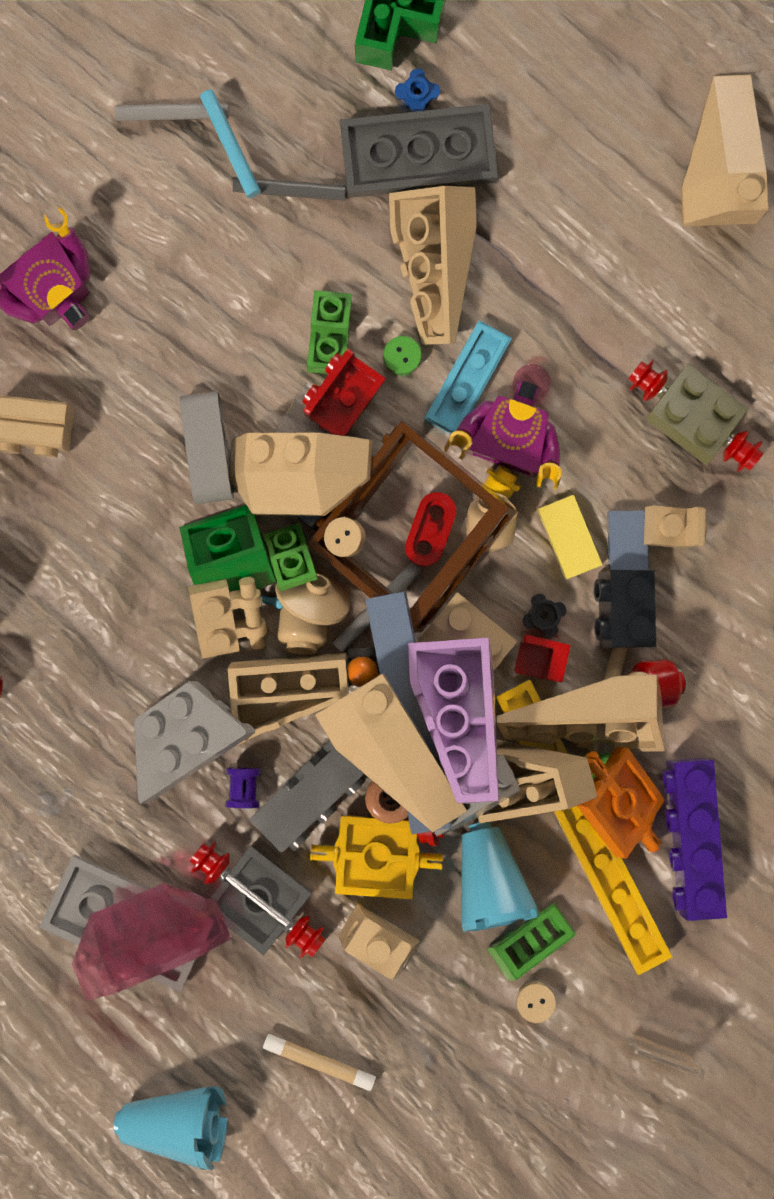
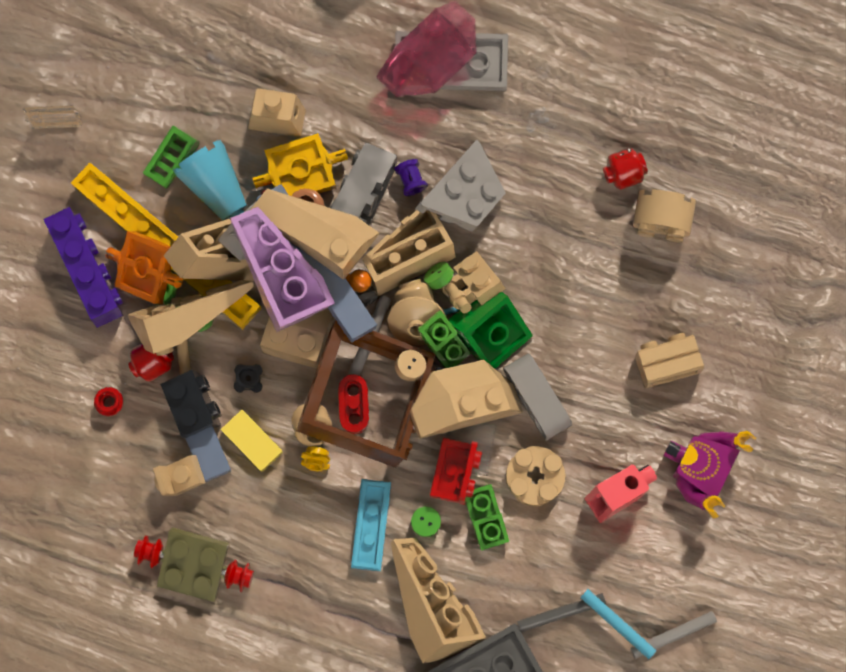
camera: 160 degrees right, 10 degrees down
(159, 290) = (619, 491): none -> coral torso
(242, 336) = (522, 486): none -> tan plate
(259, 899) = (368, 110): dark grey plate -> none
(262, 642) = (439, 275): none -> bright green tile
(319, 1062) = (284, 25): tan bar -> none
(512, 435) = (322, 492): magenta torso -> none
(535, 1002) = (153, 120): tan tile -> none
(536, 375) = (323, 541): clear pink tile -> none
(542, 658) = (237, 347): red panel -> none
(735, 652) = (102, 395): none -> red plate

